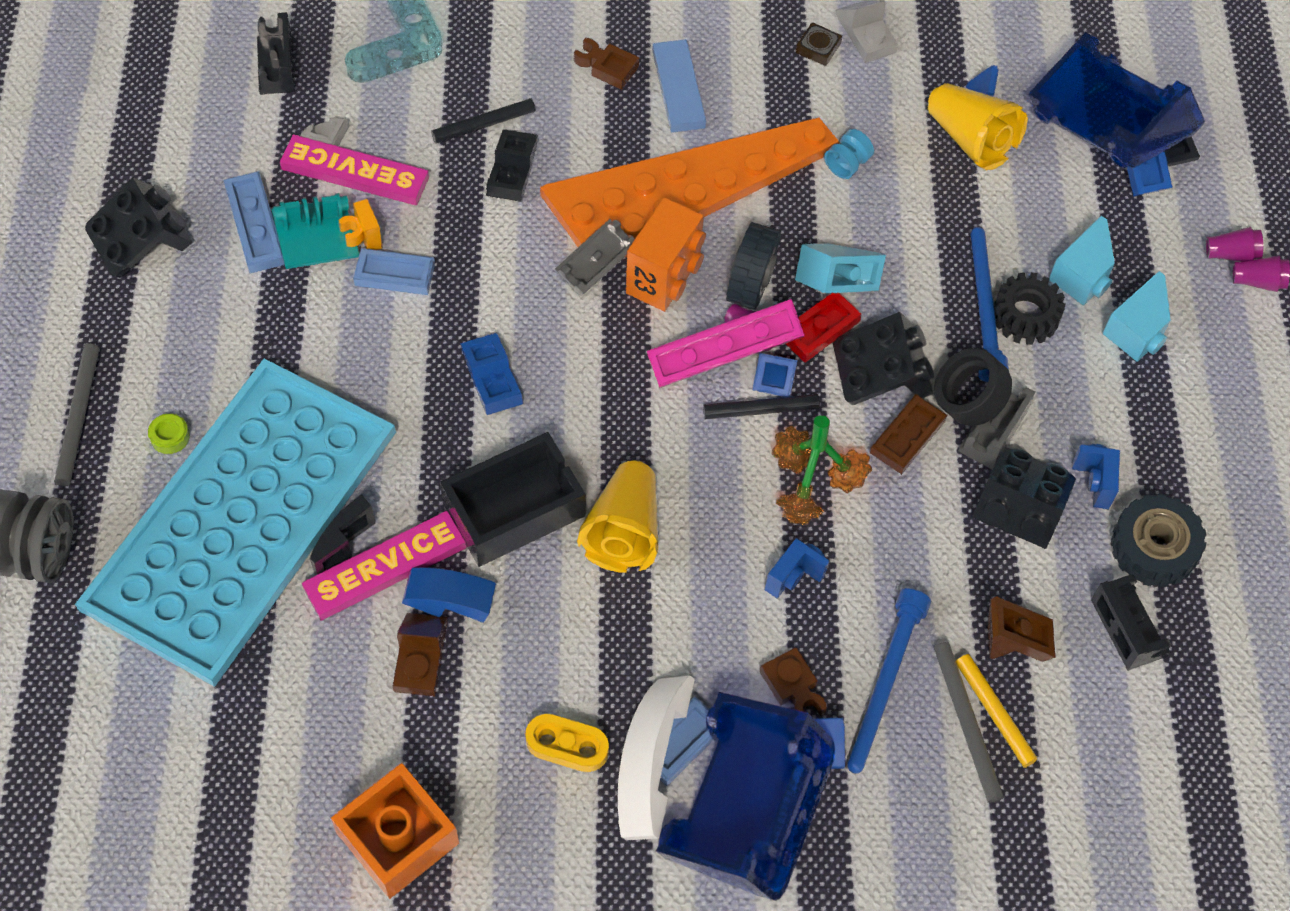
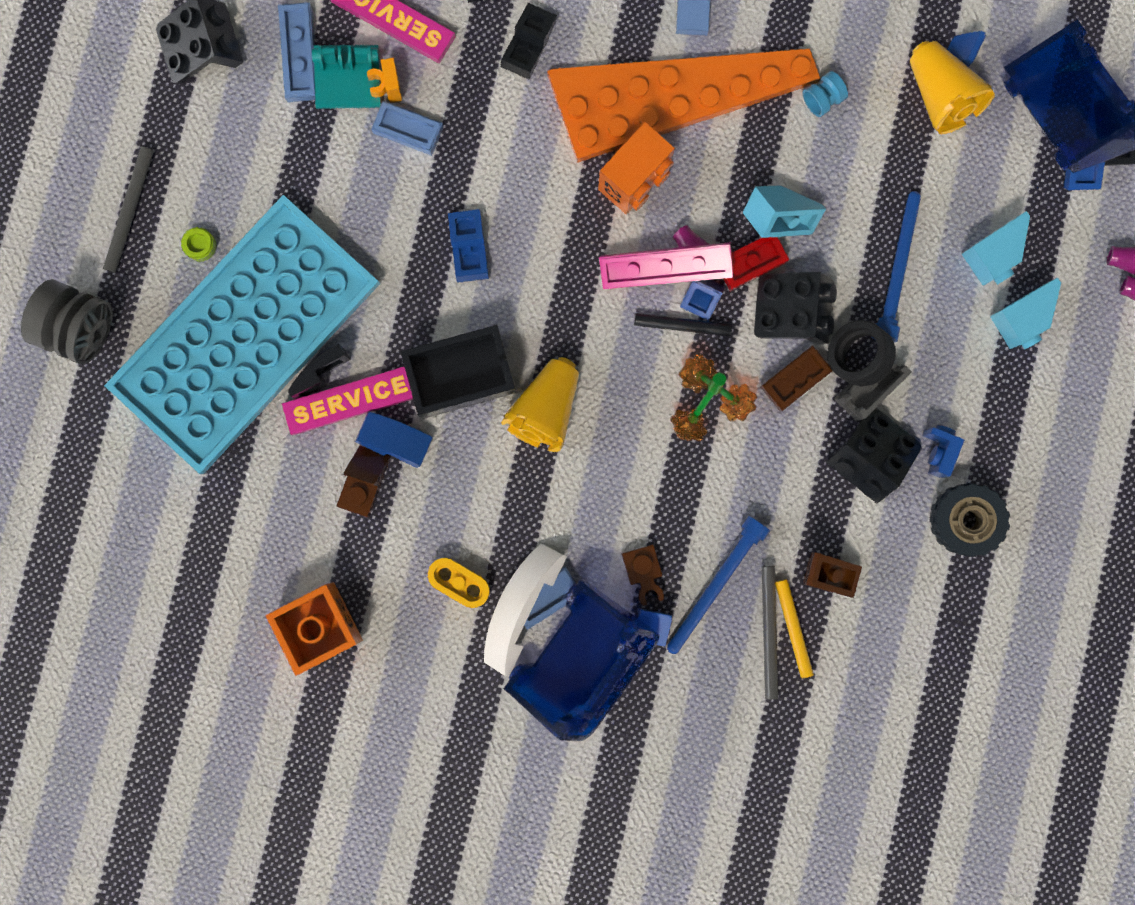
camera: 15 degrees right, 25 degrees up
(595, 257) = (577, 158): dark grey hinge -> none
(753, 265) = (708, 197): black wheel -> none
(796, 561) = (664, 480): blue bracket -> none
(1035, 292) = (951, 274): black tyre -> none
(1129, 623) = (922, 584): black hinge -> none

